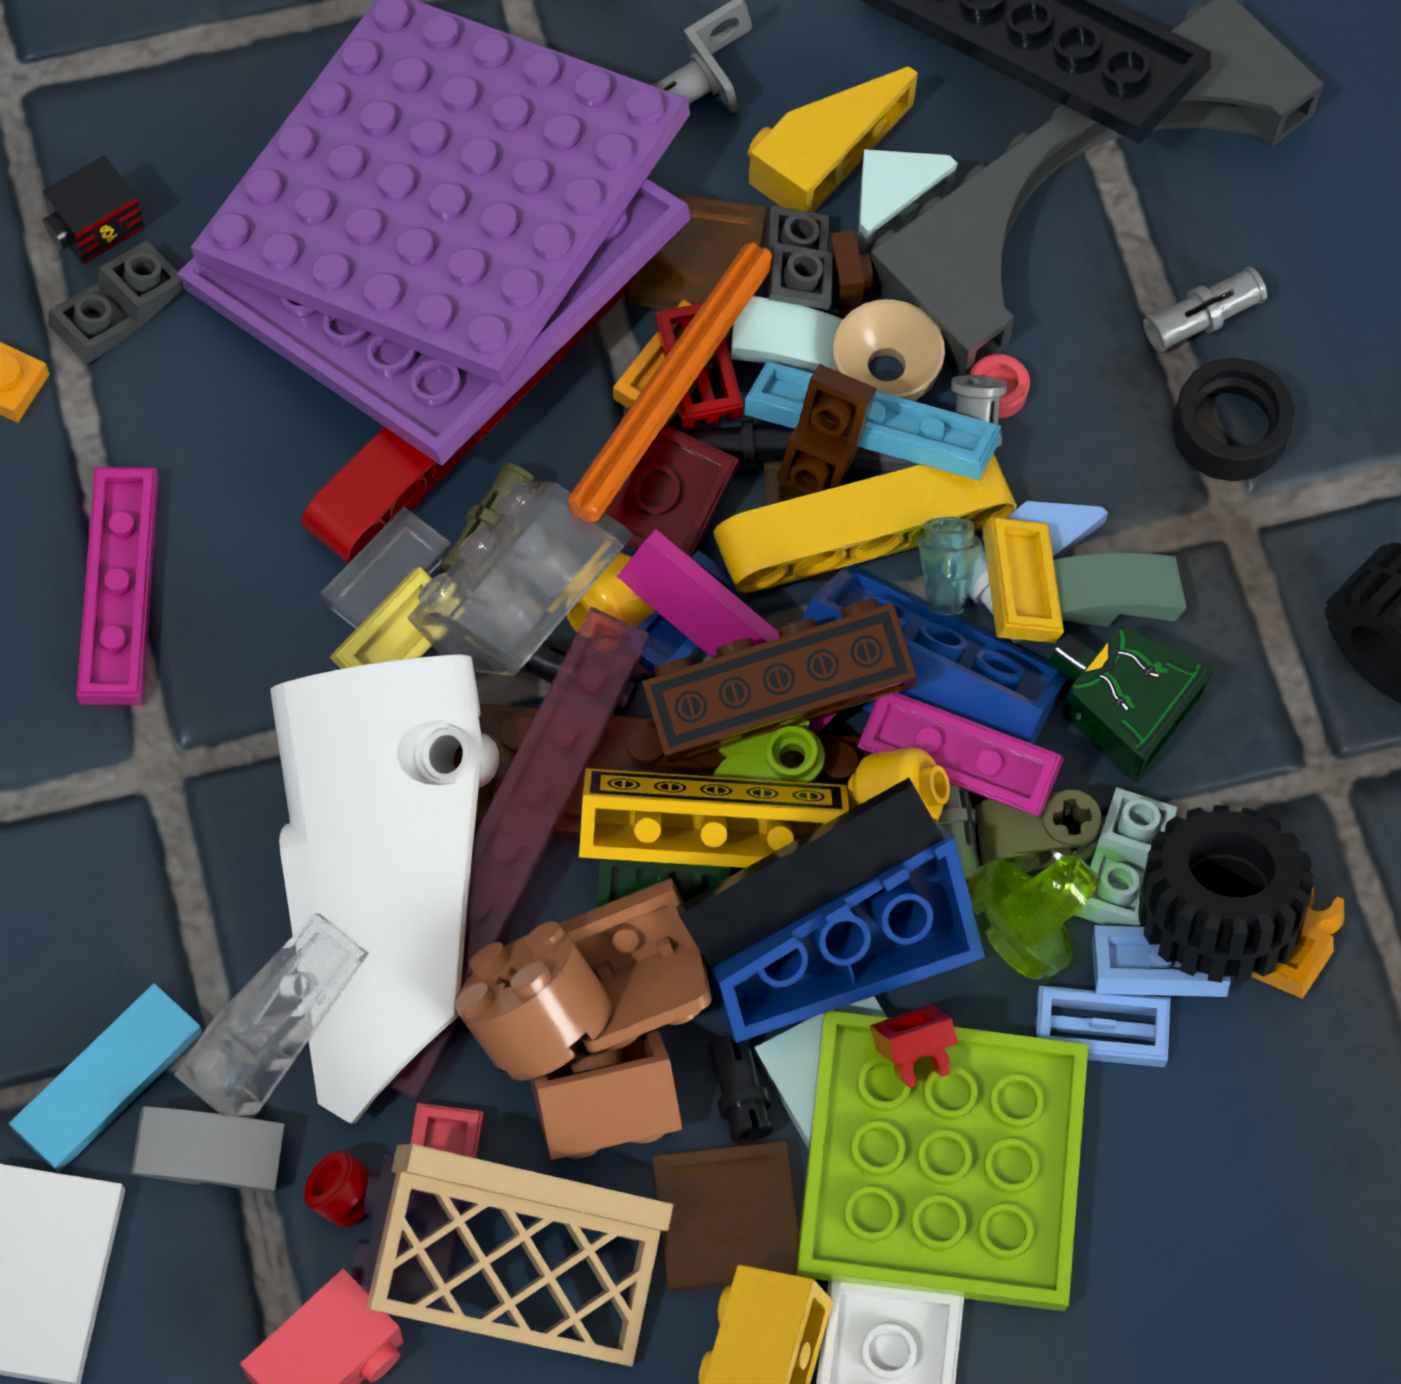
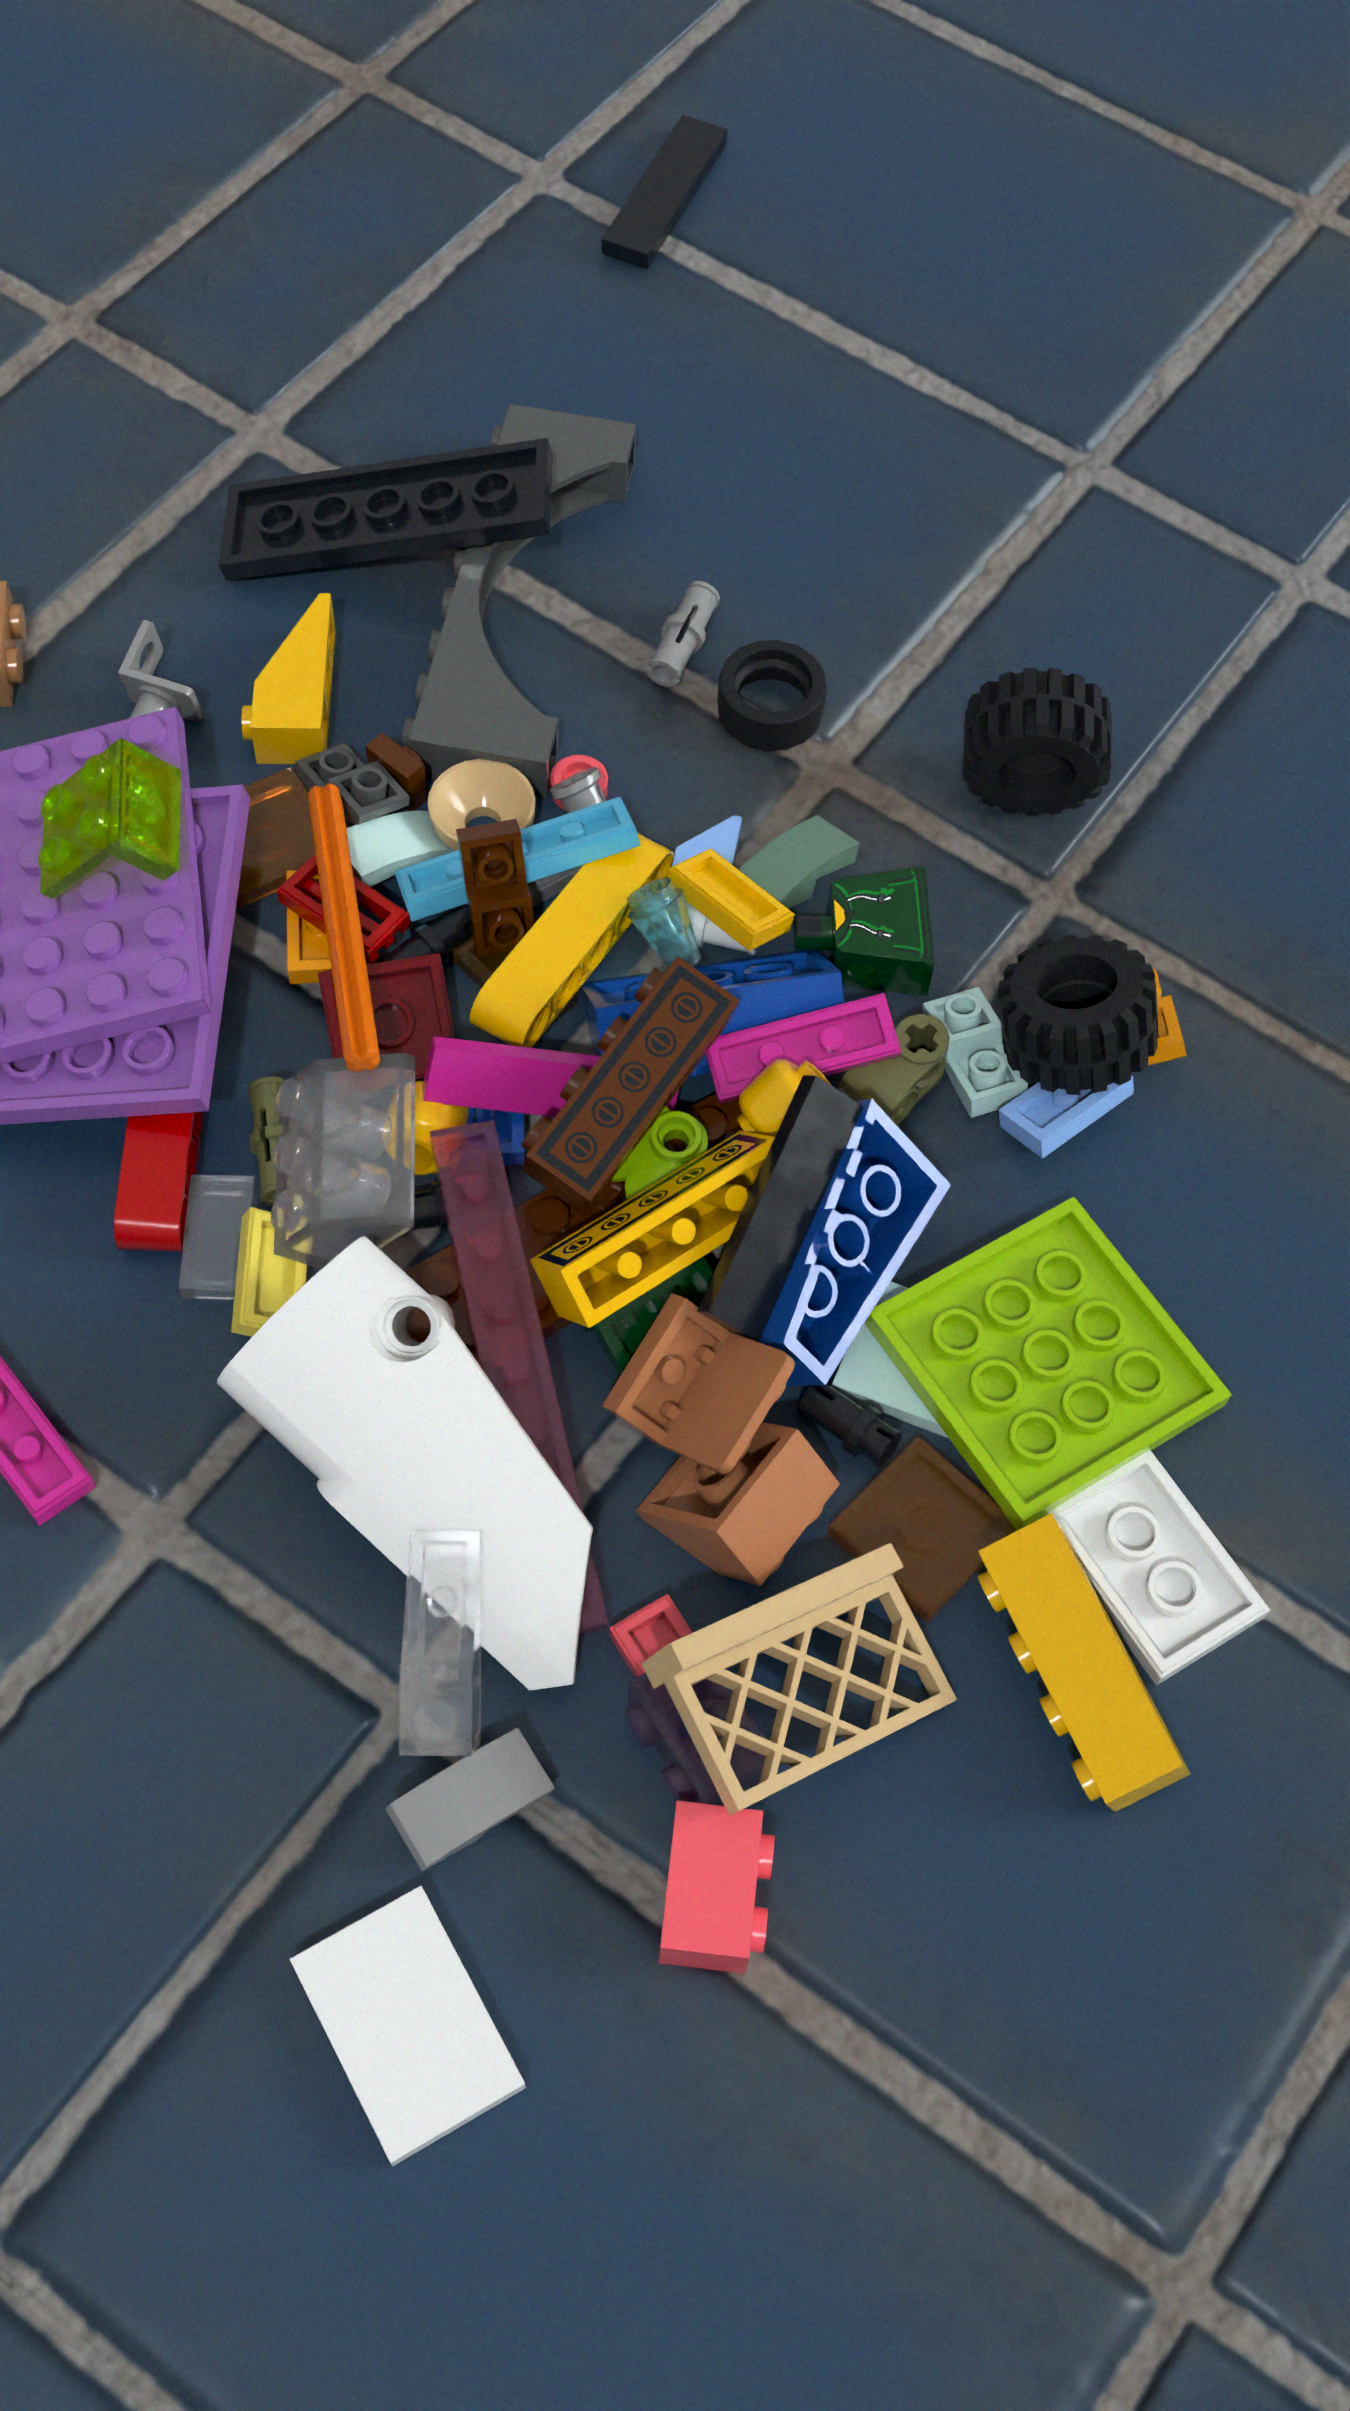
camera: 40 degrees left, 5 degrees down
(105, 1078) = (328, 1812): medium azure tile -> none
(338, 1189) = (605, 1744): red tile -> none
(532, 1002) = (647, 1469): nougat brick -> none
(550, 166) = (116, 807): none -> clear neon green bracket
(896, 189) = (382, 689): light aqua slope -> none
(913, 1036) = (957, 1278): red tile -> none
(1031, 912) = (958, 1122): clear neon green tile -> none
(1105, 1050) = (1025, 1207): light blue tile -> none

